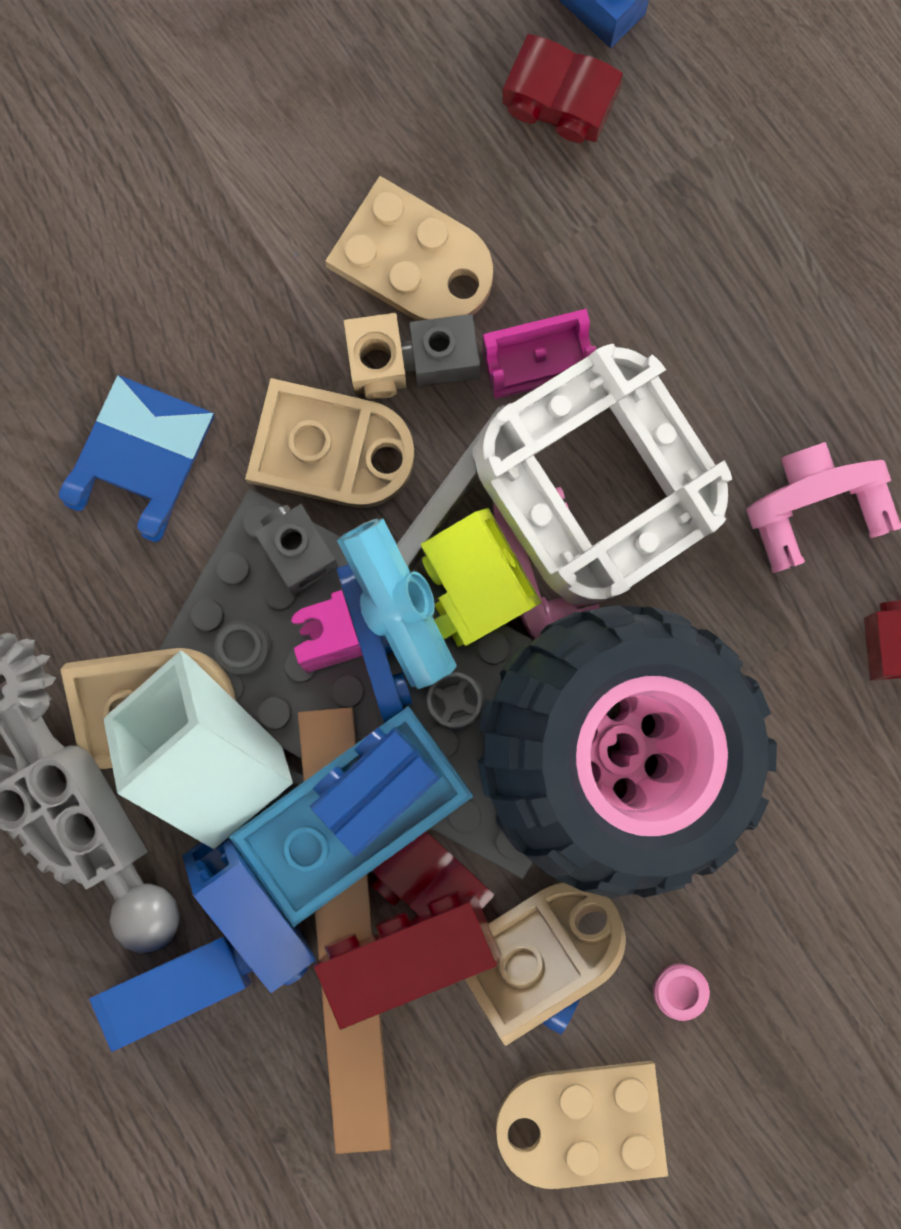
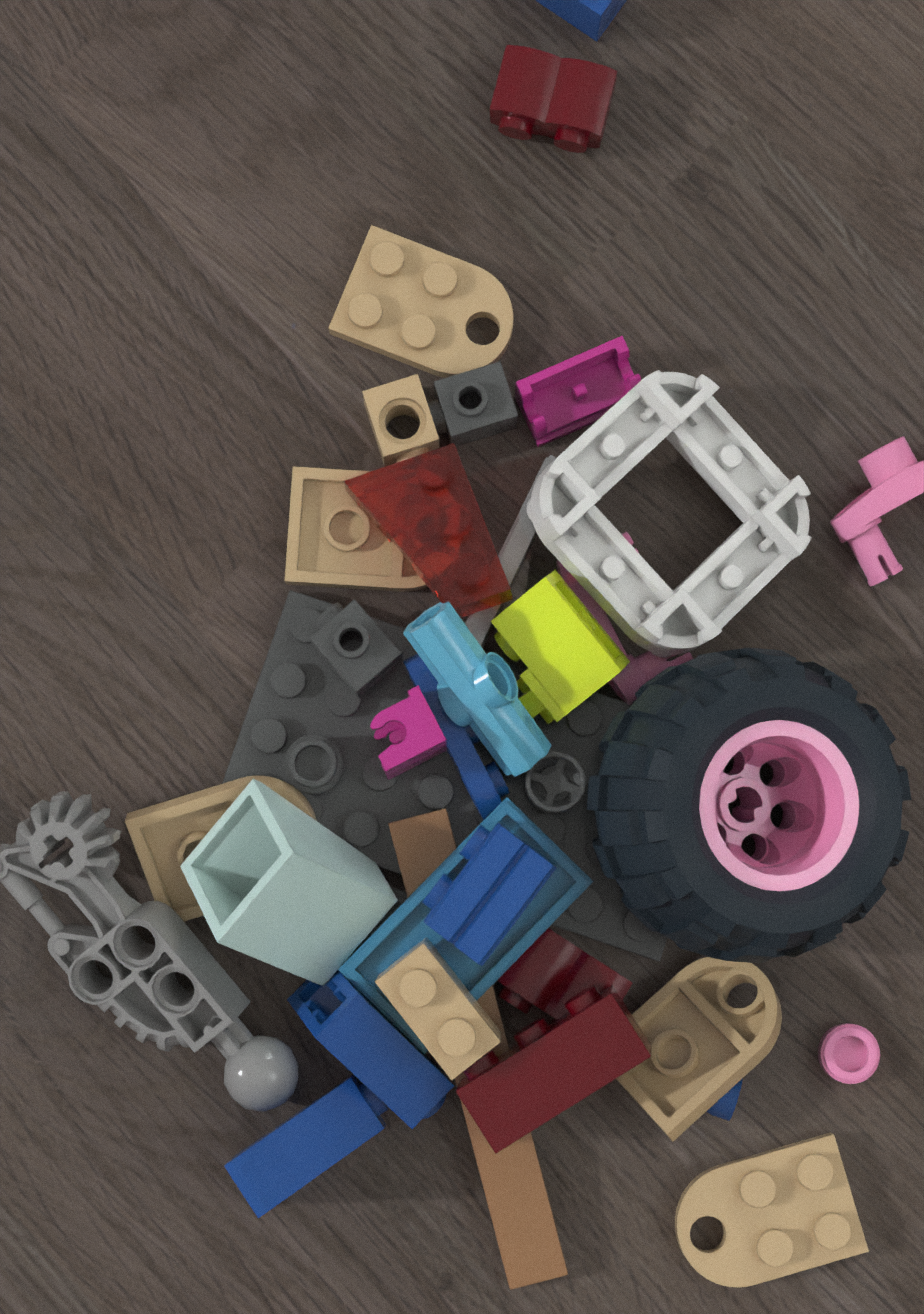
camera: 10 degrees left, 0 degrees up
(142, 446) = (163, 563): blue flag -> none
(311, 888) = (439, 1008): none -> tan brick
(390, 452) = (438, 527): none -> clear red wing

